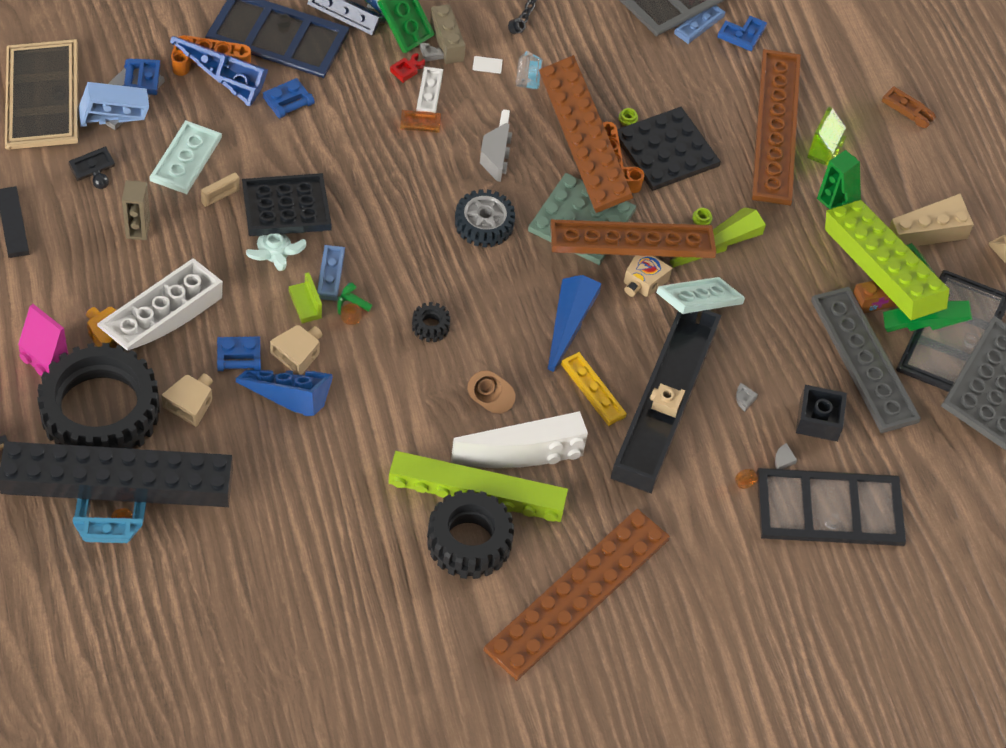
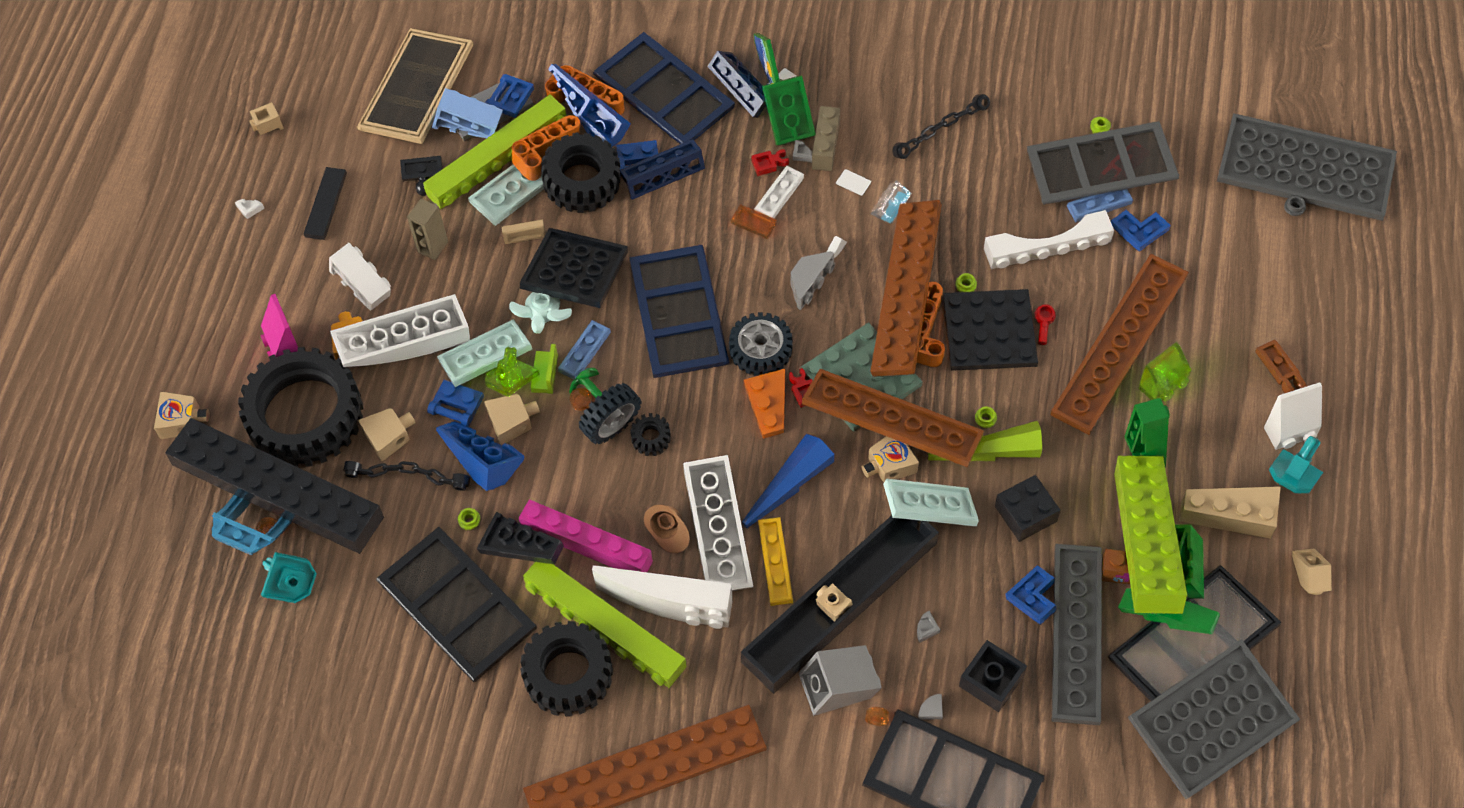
camera: 35 degrees right, 5 degrees up
(88, 272) = (359, 276): none -> white wedge
(154, 128) = (490, 154): none -> lime brick
(172, 550) = (288, 578): none -> teal piece
(176, 440) = (459, 481): none -> black piece
(191, 119) = (529, 151): none -> orange beam
(242, 302) = (483, 352): none -> light aqua tile
(248, 103) = (581, 151): none -> black tyre
(279, 311) = (510, 374): none -> clear neon green piece
(308, 440) = (469, 513): none -> lime plate
(317, 95) = (662, 165): none -> dark blue fence
(336, 520) = (456, 604): none -> door
(356, 448) = (512, 540): none -> black wing
(393, 312) = (610, 413): none -> black wheel
(395, 214) = (678, 311): none -> door
(420, 424) = (586, 538): none -> dark pink brick
(514, 261) = (768, 401): none -> orange wing
(528, 369) = (717, 522): none -> white slope
(539, 243) = (800, 385): none -> red plate
(649, 79) = (1009, 250): none -> white arch
(700, 460) = (839, 678): none -> light grey slope
(706, 123) = (1044, 316): none -> red plate
(775, 276) = (1027, 508): none -> black brick
(813, 344) = (1028, 595): none -> blue plate
(943, 138) = (1295, 416): none -> white slope
(962, 180) = (1295, 470): none -> teal piece

